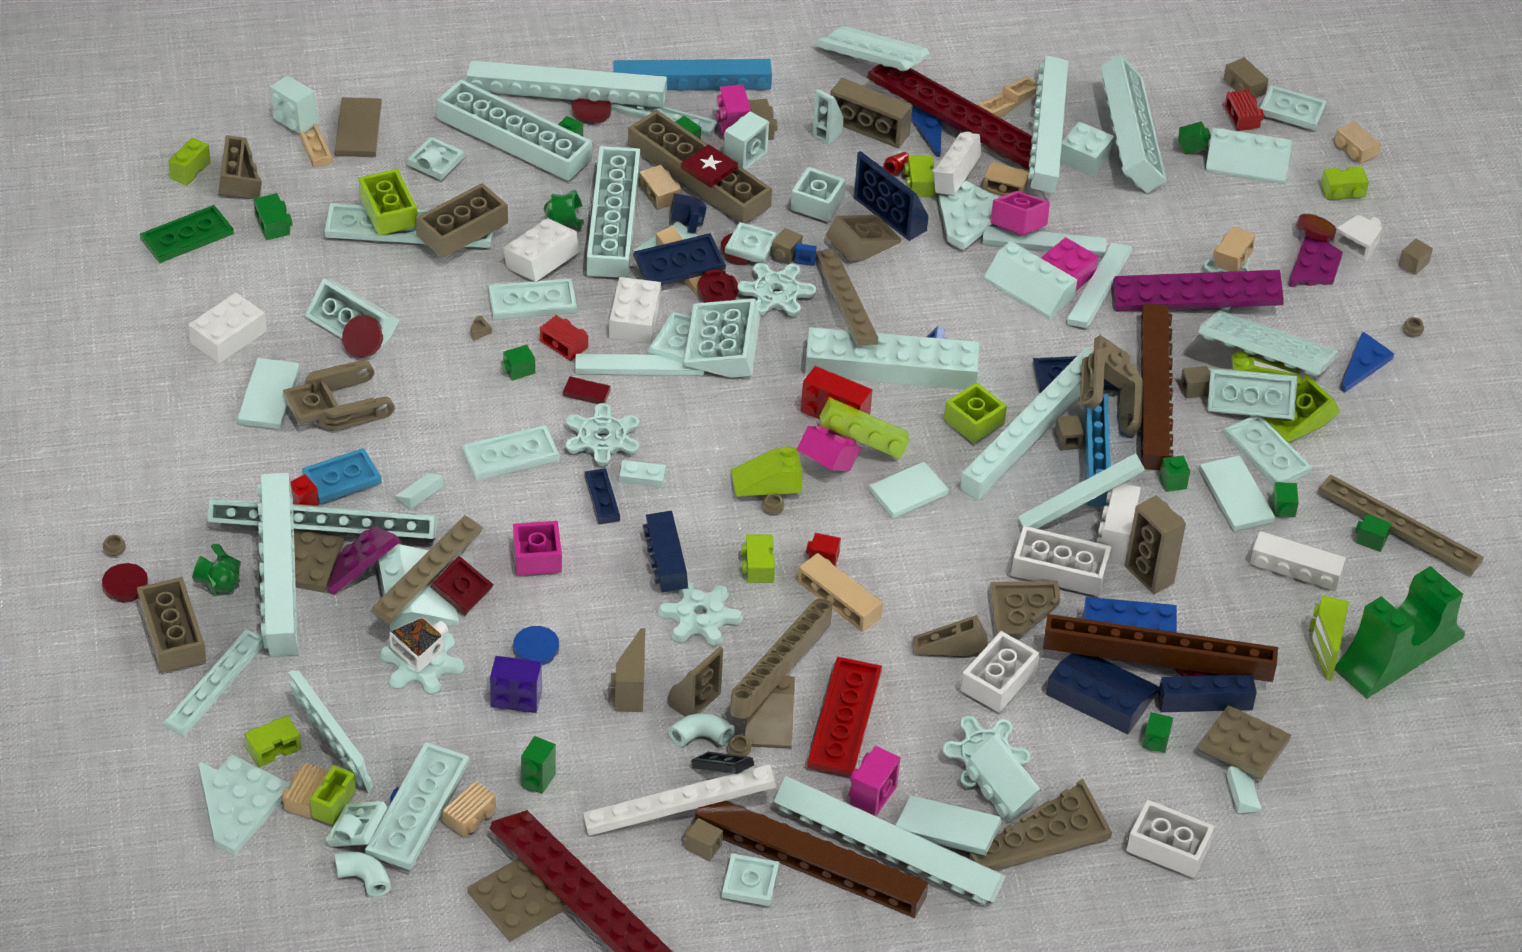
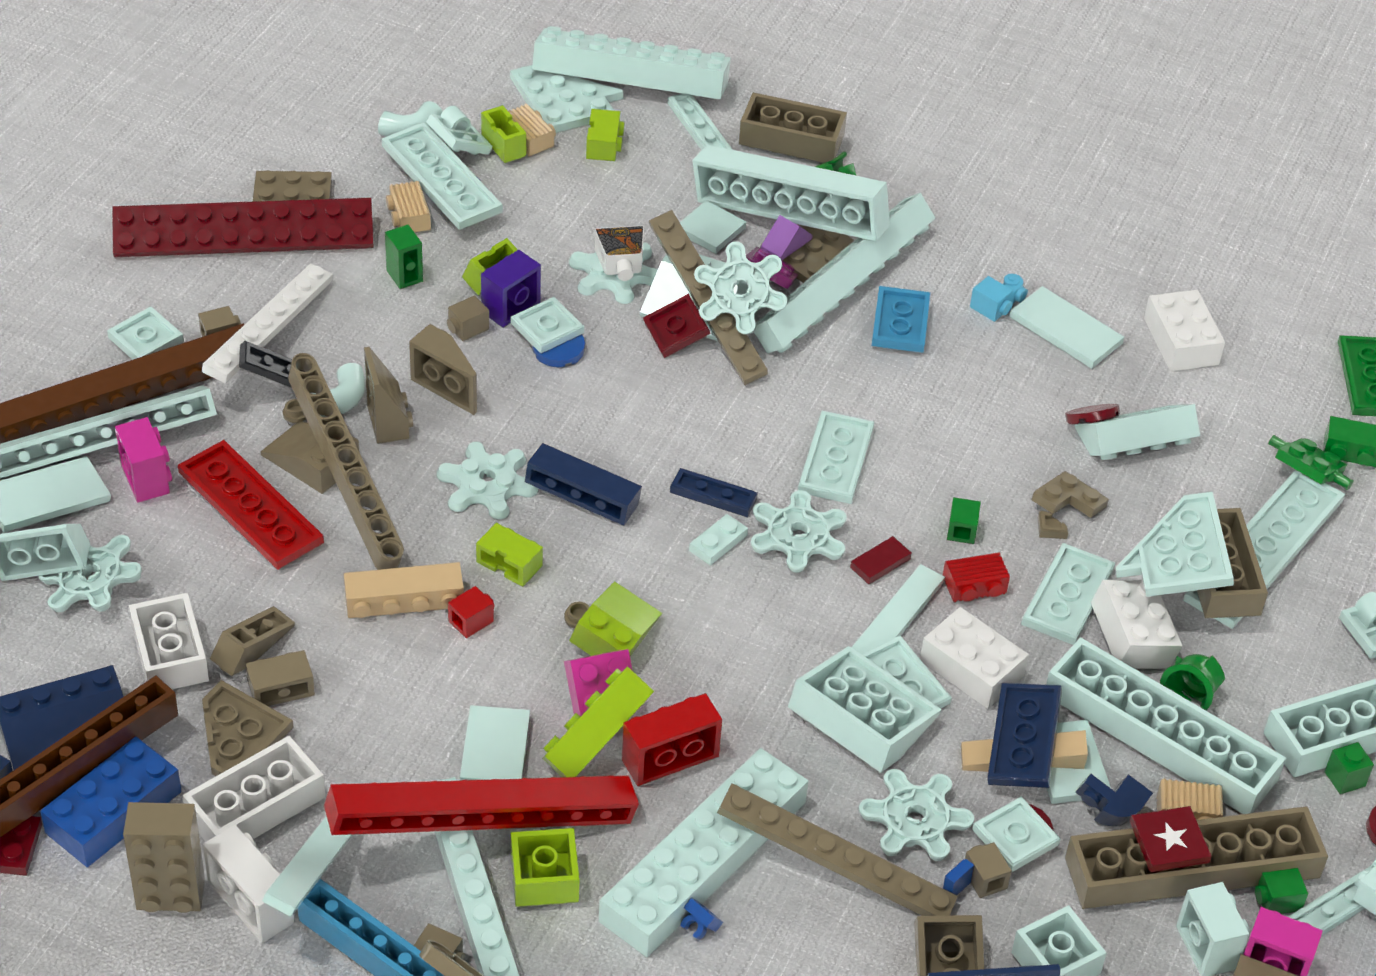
camera: 125 degrees right, 0 degrees up
(114, 545) = (932, 146): dark tan plate -> none
(122, 581) = (880, 137): dark red tile -> none
(170, 763) = (631, 62): none -> light aqua brick
(276, 434) = (995, 298): none -> medium azure brick
(304, 491) = (893, 272): red brick -> none
(311, 227) = (1311, 461): none -> green plate
(316, 403) = (1019, 338): dark tan plate -> none
(318, 560) = (785, 238): none -> medium lavender slope
(325, 628) = (712, 226): none -> light aqua tile
(329, 729) = (572, 158): light aqua plate -> none
(387, 201) = (1299, 517): lime brick -> none
(420, 490) = (837, 365): light aqua slope -> none
(434, 531) = (737, 271): none -> light aqua plate
(443, 330) = (1067, 490): none -> dark tan plate
(484, 223) = (1182, 550): none -> light aqua wing
(497, 714) = (485, 260): none -> lime brick
(530, 647) = (547, 325): none -> light aqua tile
(537, 548) = (672, 391): dark pink brick -> none
(560, 703) = (468, 318): none -> dark tan brick
(717, 286) = (962, 759): dark red tile -> none
(963, 603) = (280, 678): none -> dark tan brick
(978, 438) = (479, 804): none -> red brick

